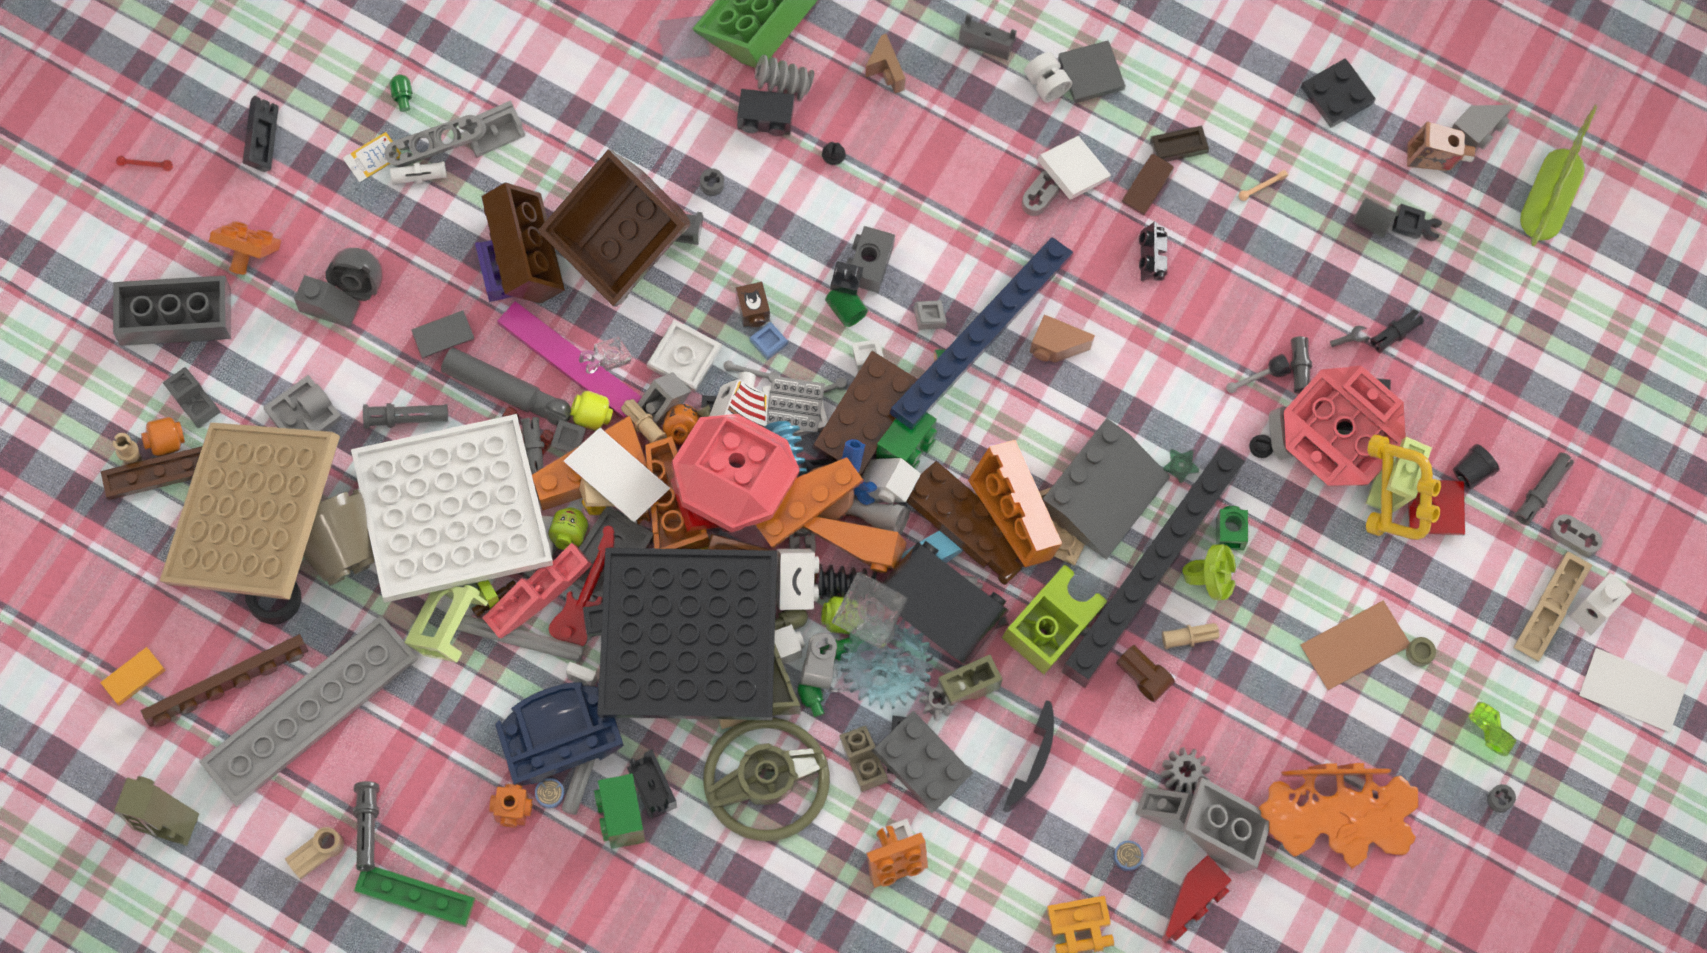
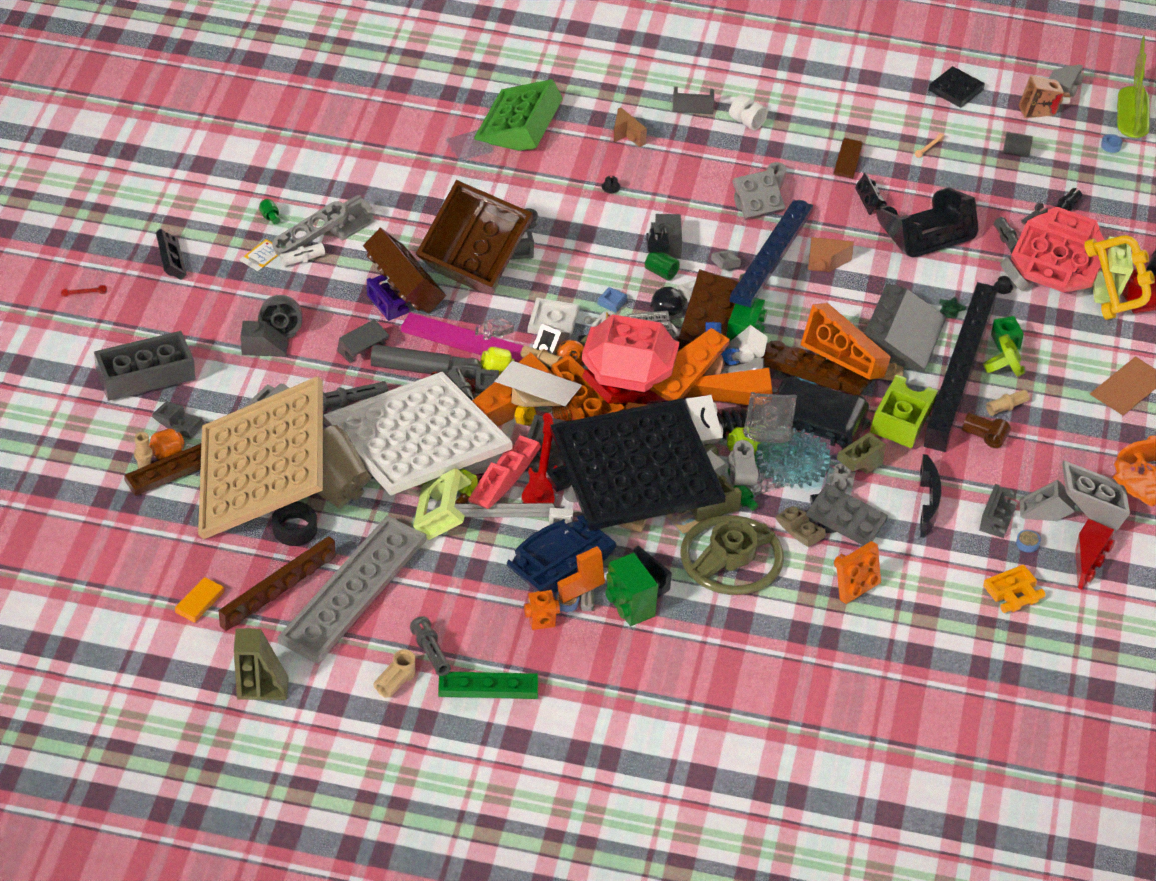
camera: 15 degrees left, 25 degrees down
(244, 243) = (186, 314): orange plate -> none
(568, 527) = (512, 428): lime head -> none
(570, 780) = (588, 577): none -> orange tile
(753, 304) = (591, 278): reddish brown brick -> none
(765, 112) = (551, 170): black brick -> none
(783, 76) = (557, 144): light grey piece -> none
(832, 366) = (668, 300): none -> black hair
(1008, 221) = (758, 194): none -> light grey plate
(1074, 167) = (791, 158): white tile -> none
(1092, 71) = (780, 107): dark grey tile -> none
(1108, 805) = (998, 512): none -> dark grey hinge
(1175, 765) = (1042, 475): light grey gear -> none
(1180, 144) = (863, 132): dark brown tile -> none
(1207, 326) = (945, 225): none -> black windscreen
(1277, 367) = (992, 239): hinge -> none
(1412, 223) = (1046, 144): black plate -> none
(1501, 240) = (1111, 143): none -> medium blue tile

